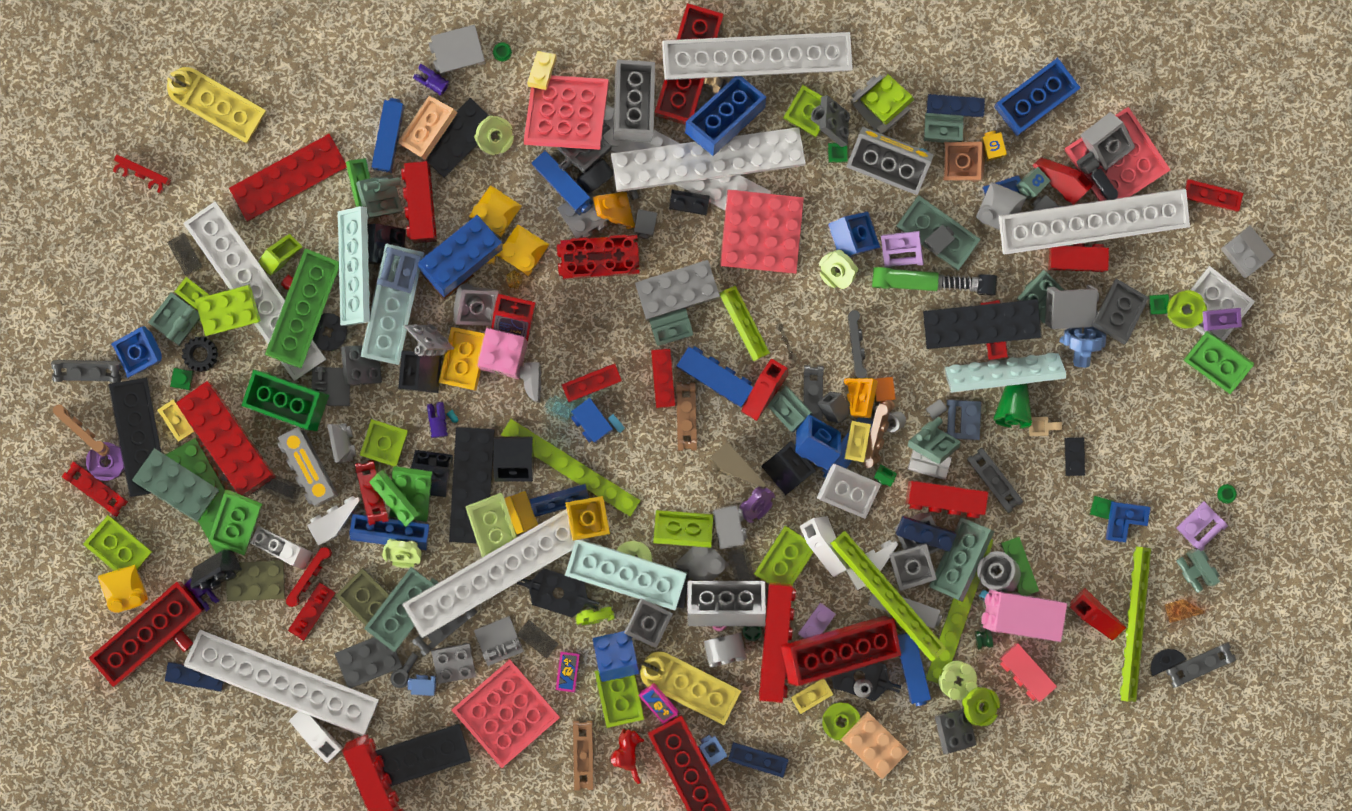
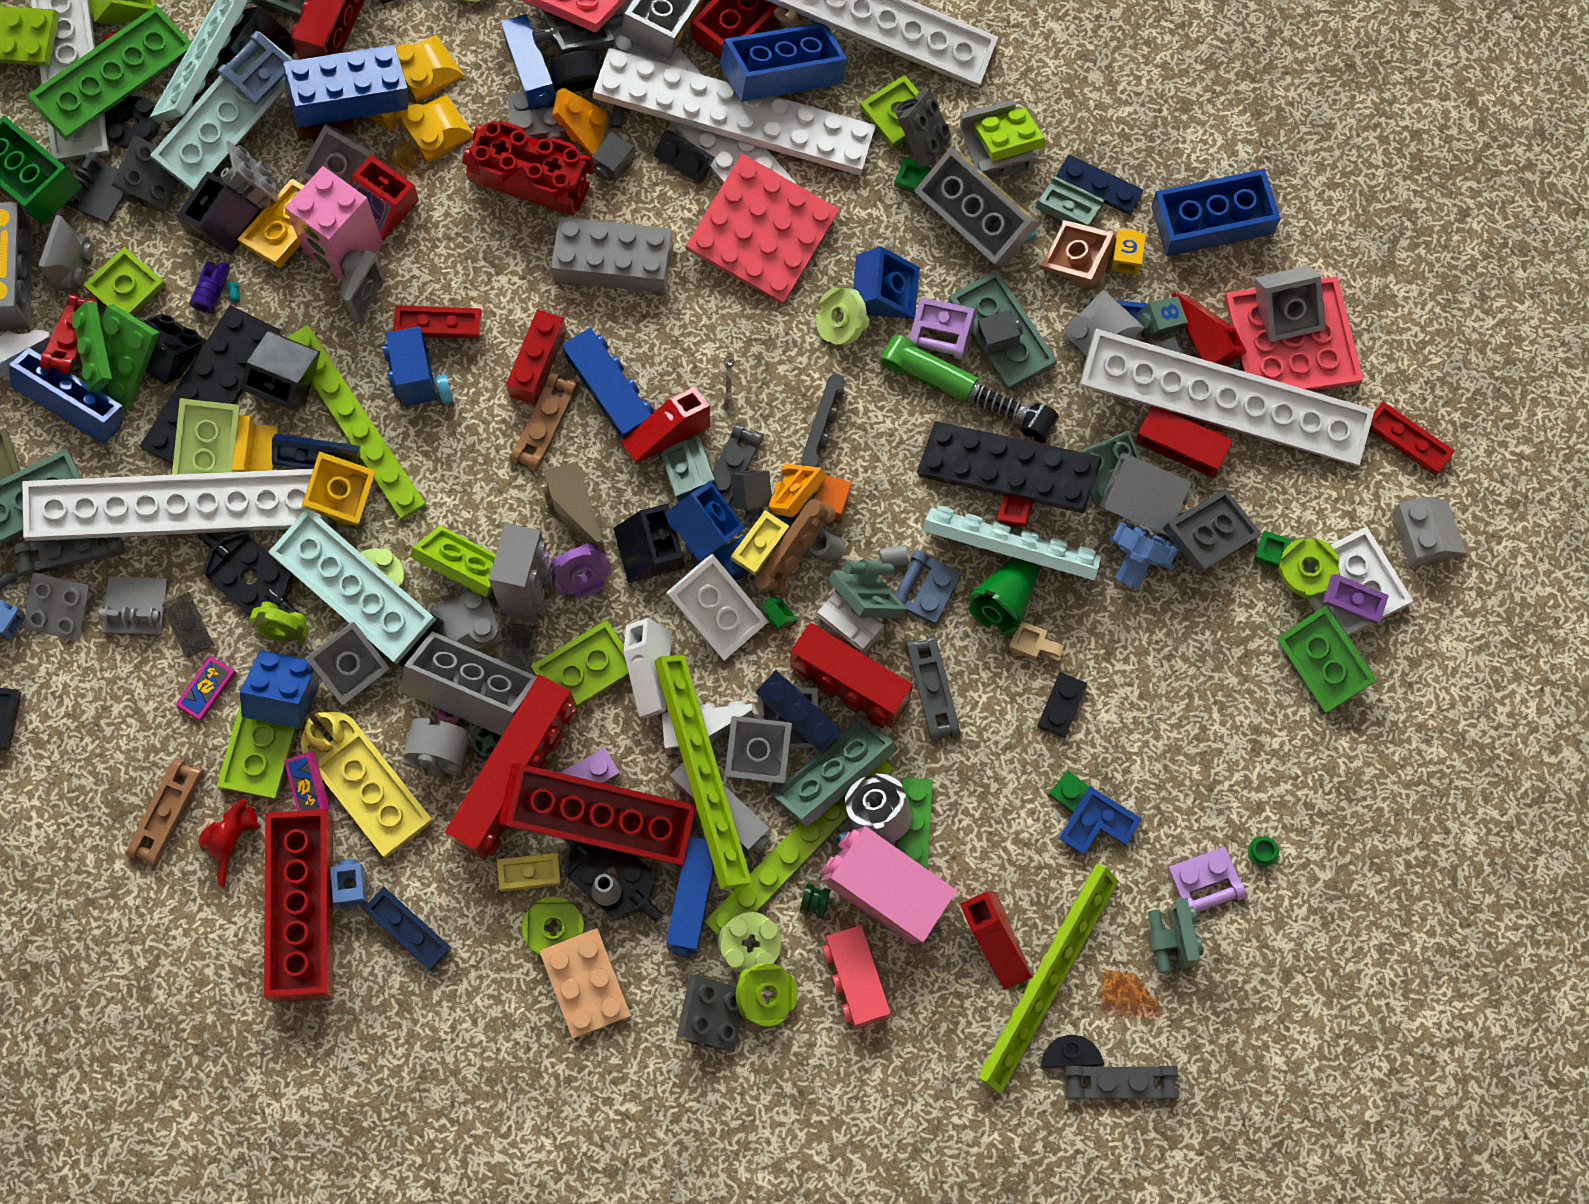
camera: 25 degrees right, 15 degrees down
(402, 553) = (66, 427): yellowish green plate -> none
(505, 713) = (89, 706): coral plate -> none
(559, 408) = (373, 336): clear light blue brick -> none
(671, 327) = (581, 297): sand green plate -> none
(744, 323) = (682, 334): lime plate -> none
(1088, 165) = (1252, 323): piece -> none

